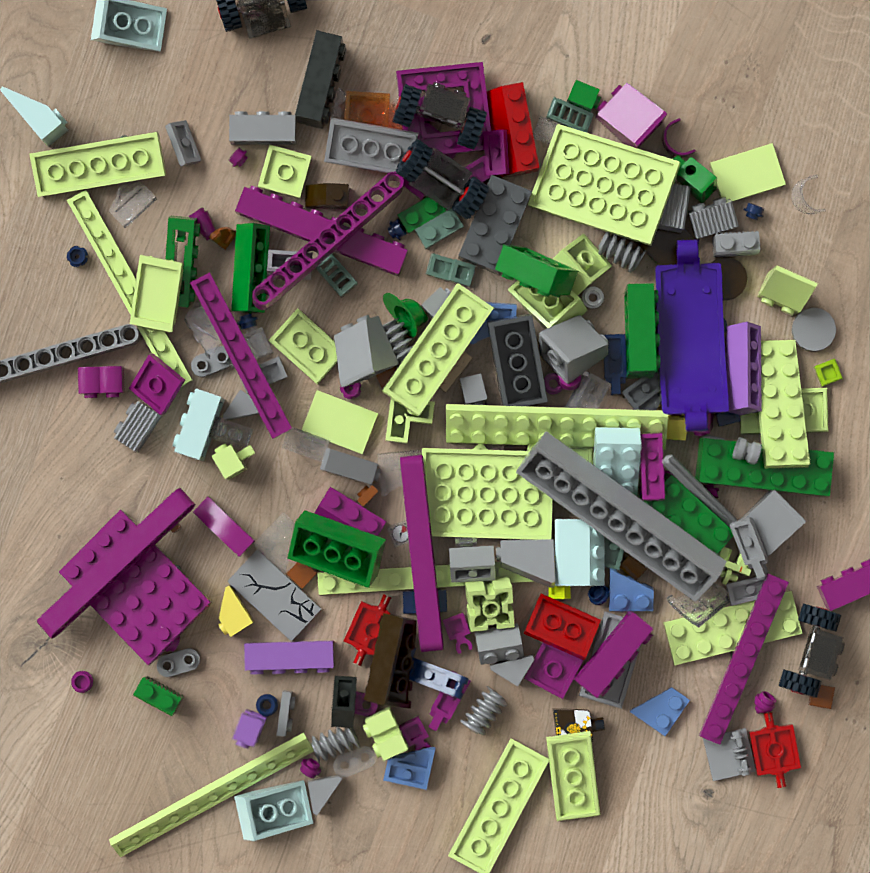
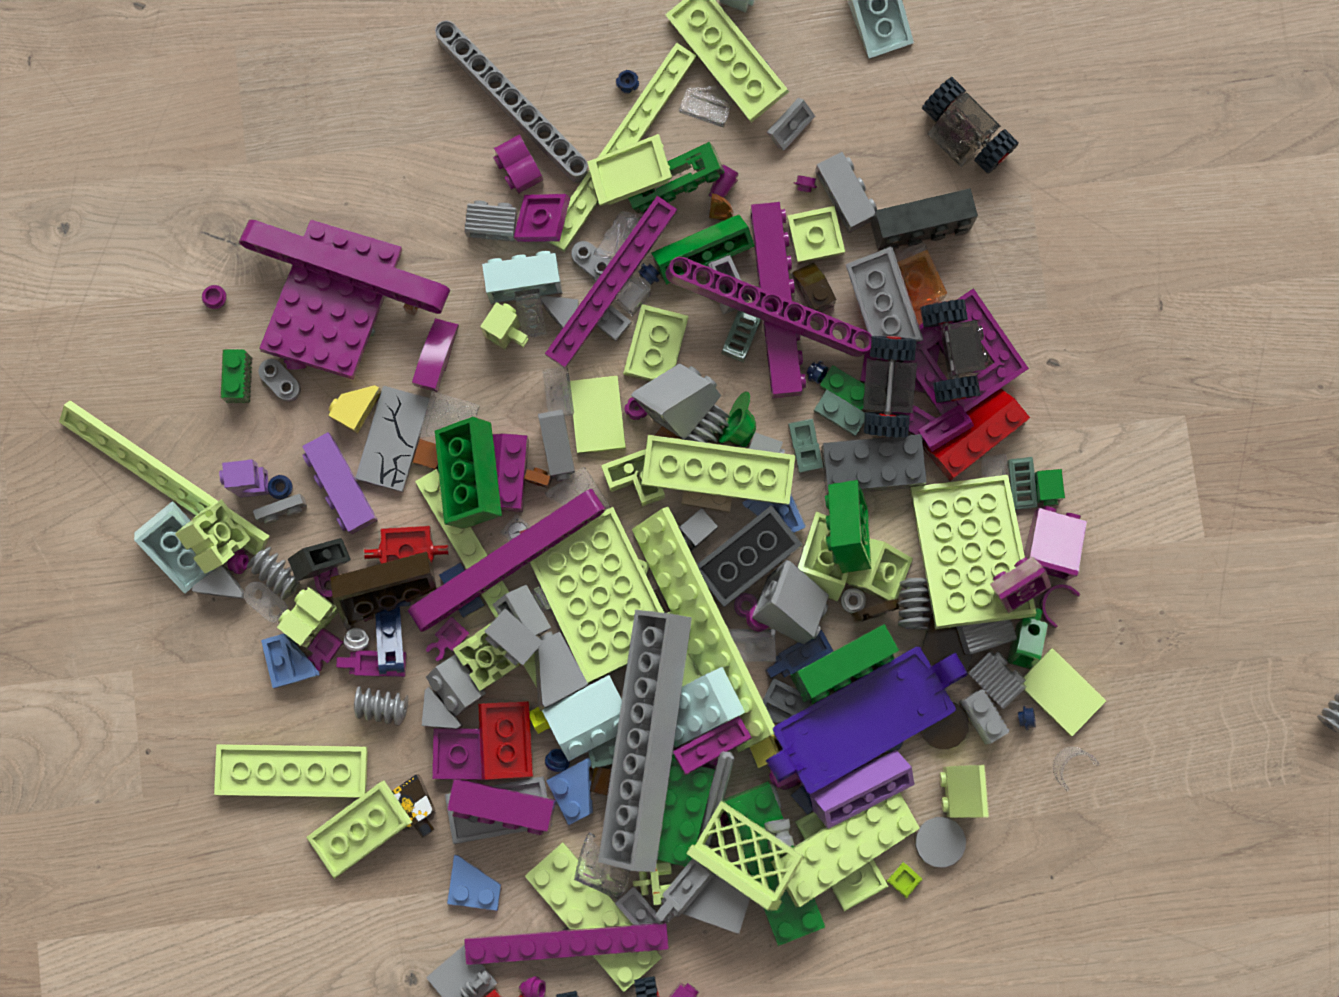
camera: 65 degrees right, 5 degrees down
(282, 776) = (213, 536): none -> yellowish green brick
(421, 704) = (356, 639): none -> white plate
(489, 578) = (512, 637): none -> light grey brick
(611, 284) = (876, 610): none -> dark brown tile
(651, 162) = (1020, 583): none -> magenta slope
(765, 497) = (739, 877): none -> yellowish green fence

